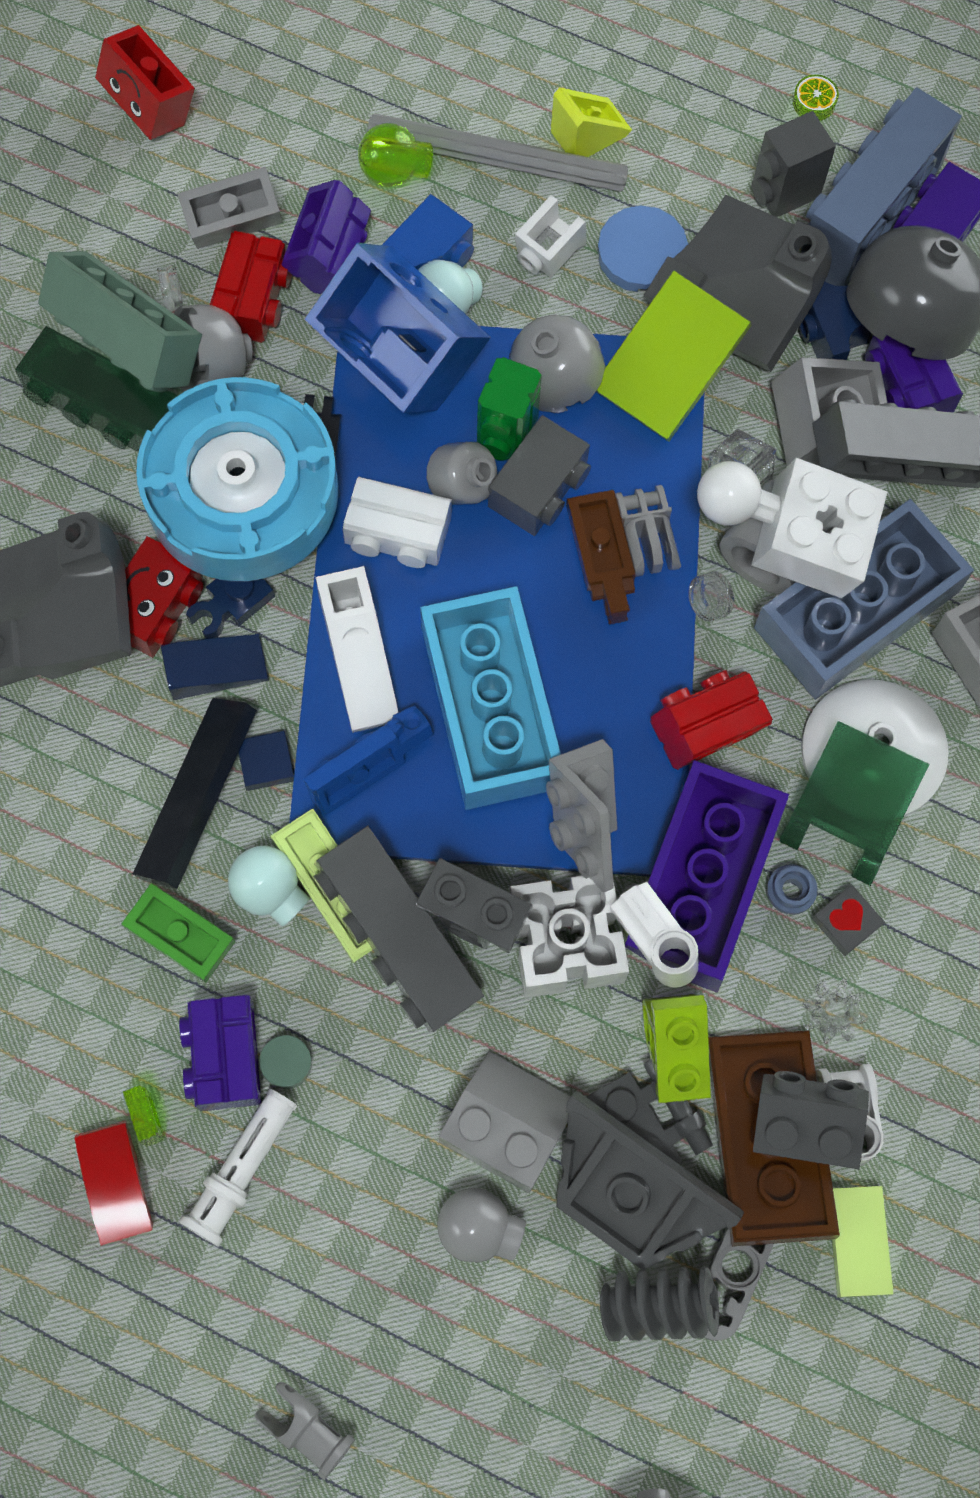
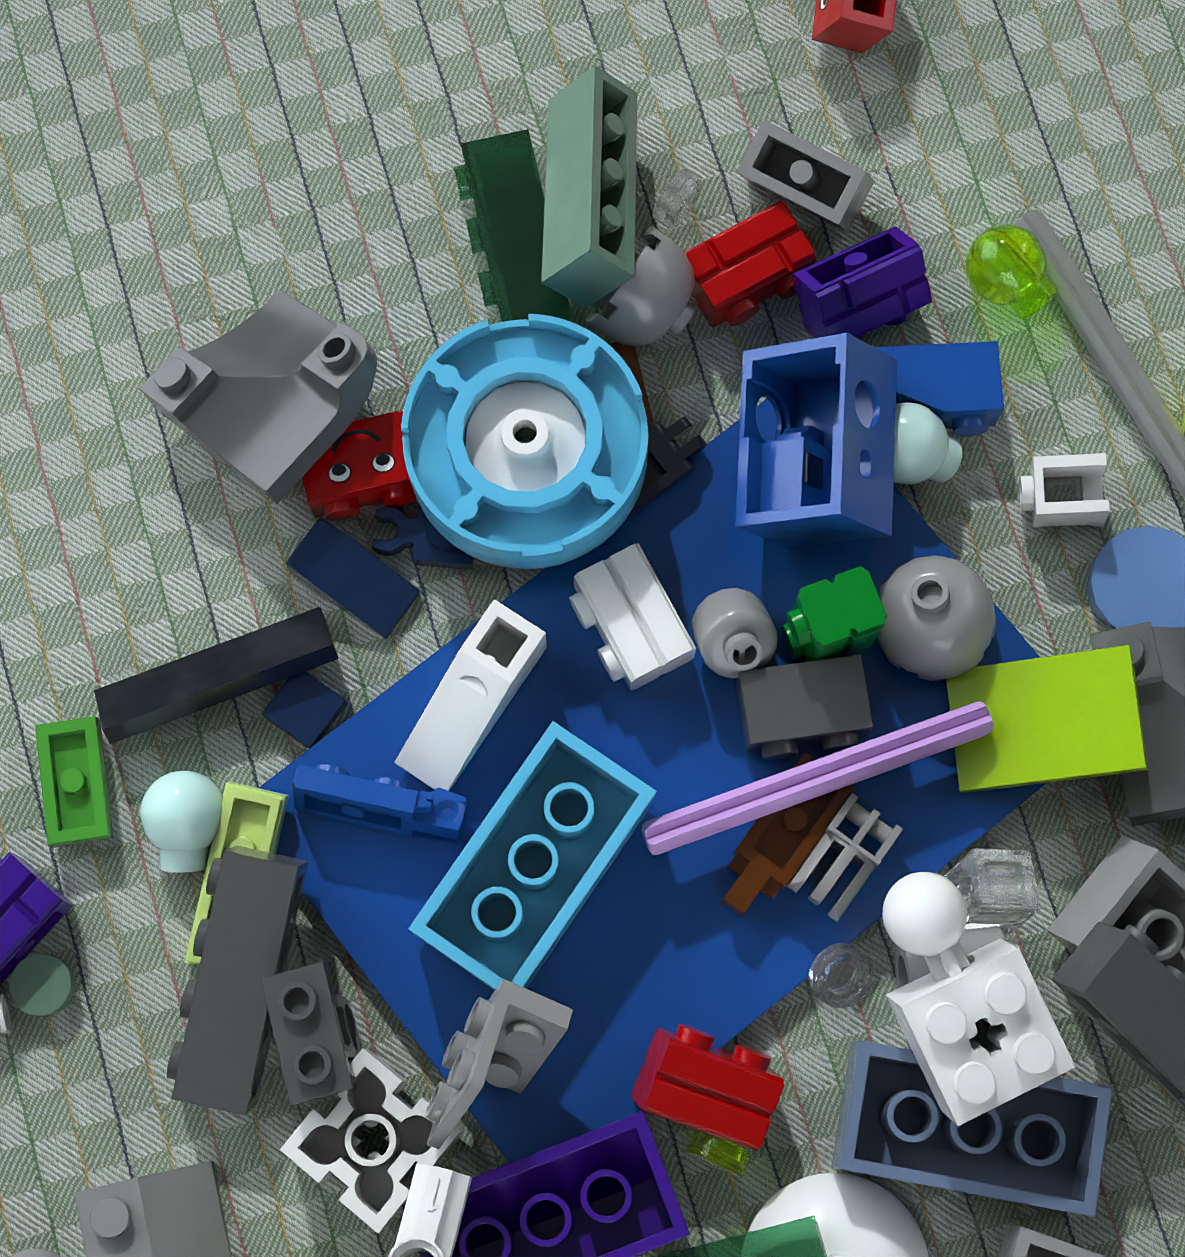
camera: 50 degrees right, 5 degrees up
(589, 503) = (817, 778): none -> lavender axle
(753, 750) = (719, 1153): none -> clear neon green tile

